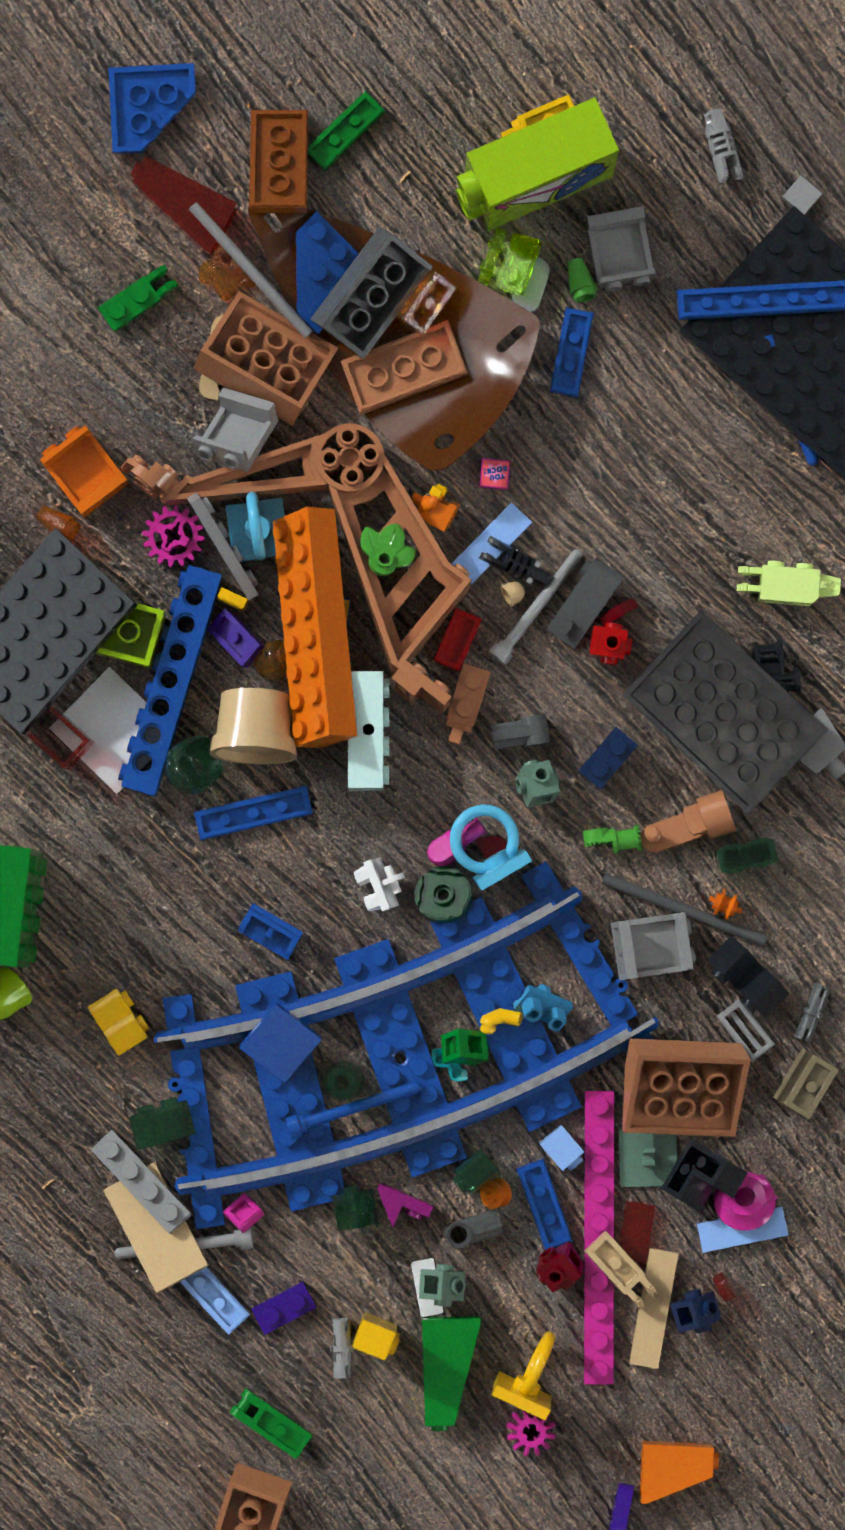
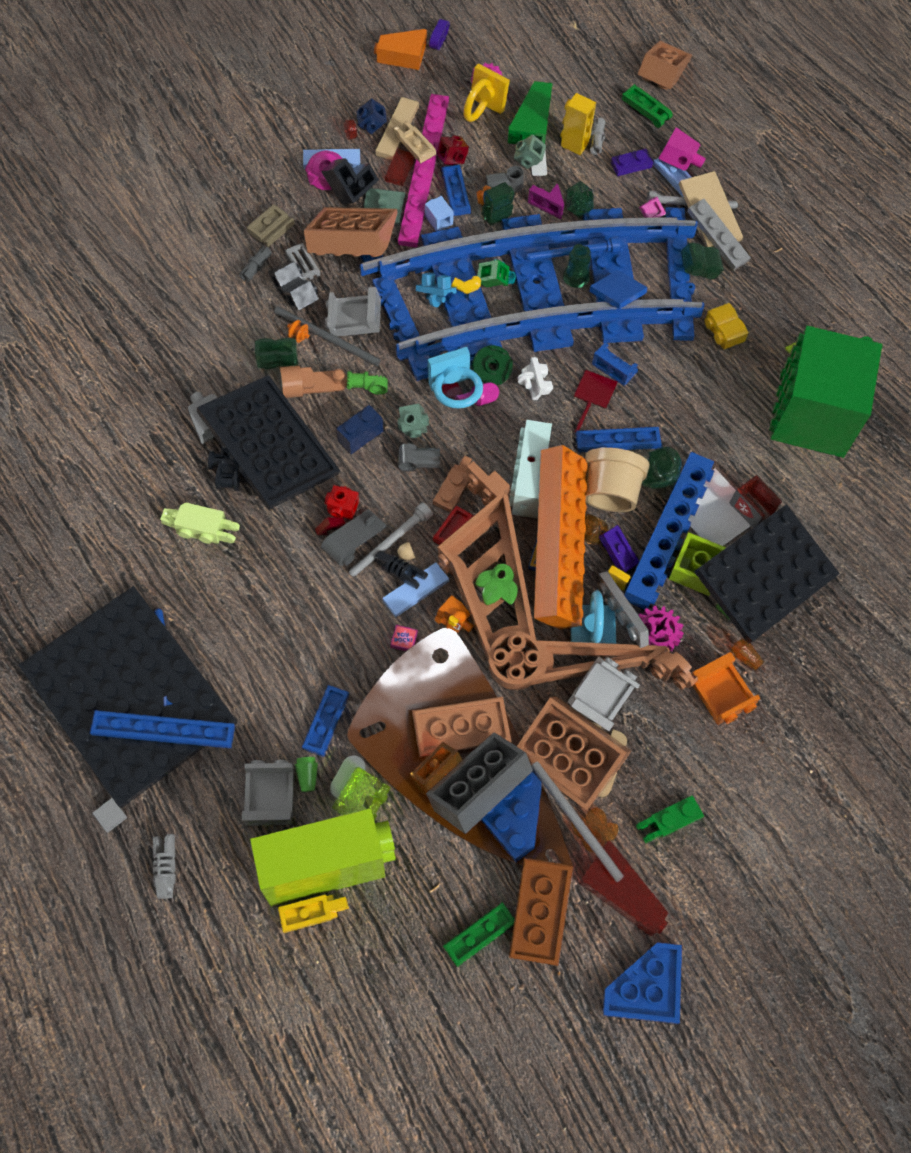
camera: 175 degrees left, 20 degrees down
(210, 1330) = (682, 151): none -> dark pink torso
(292, 887) = (594, 390): none -> dark red piece

